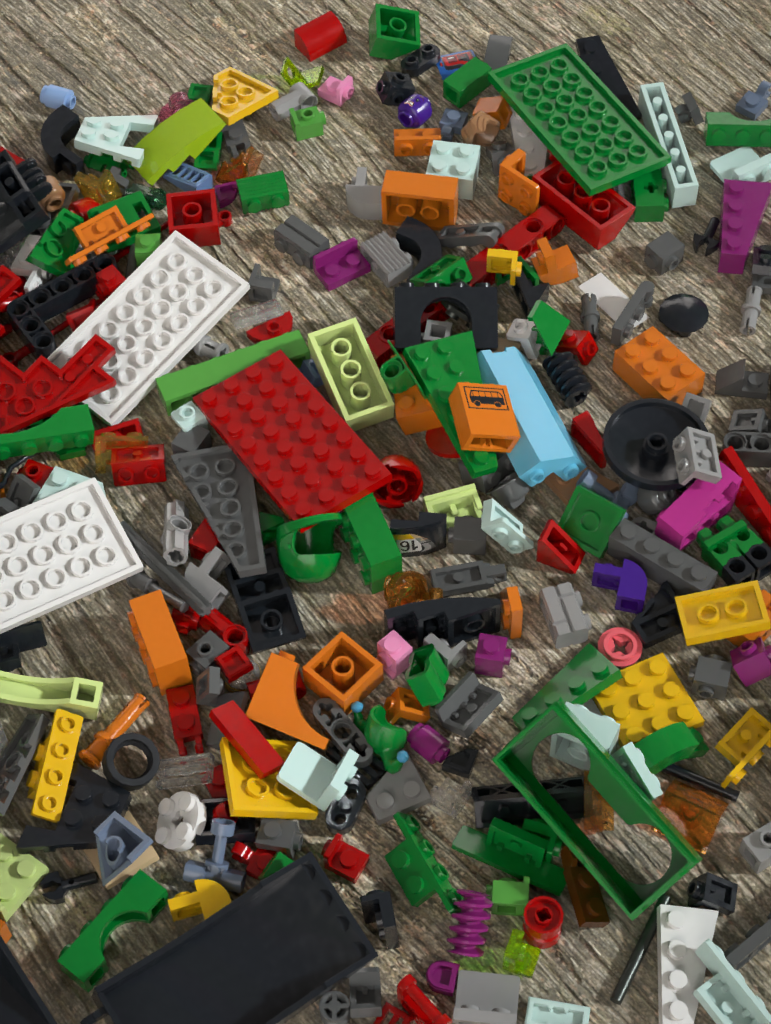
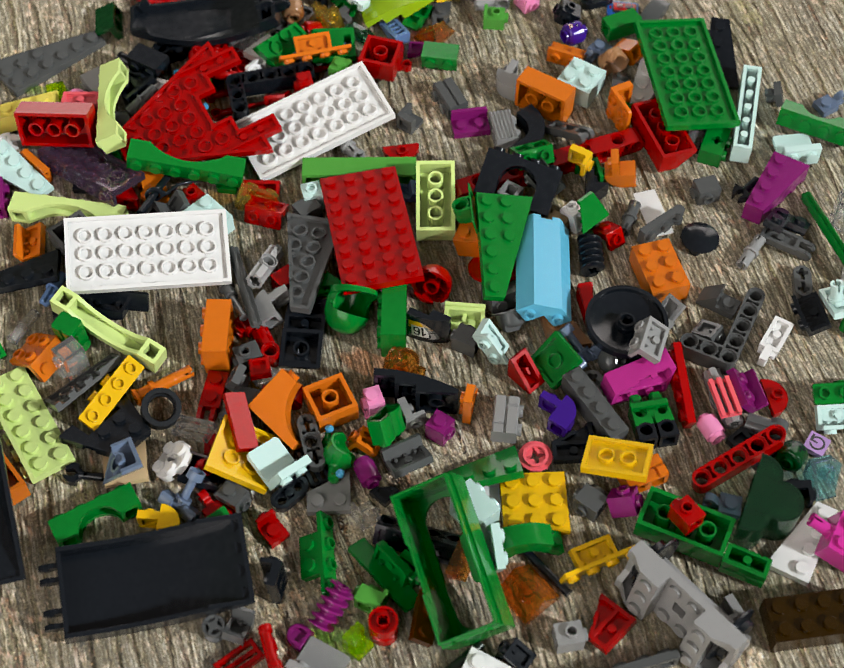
camera: 20 degrees right, 0 degrees up
(256, 314) = (394, 137): clear tile -> none
(467, 577) = (450, 368): dark grey hinge -> none
(484, 417) = (508, 259): orange brick -> none

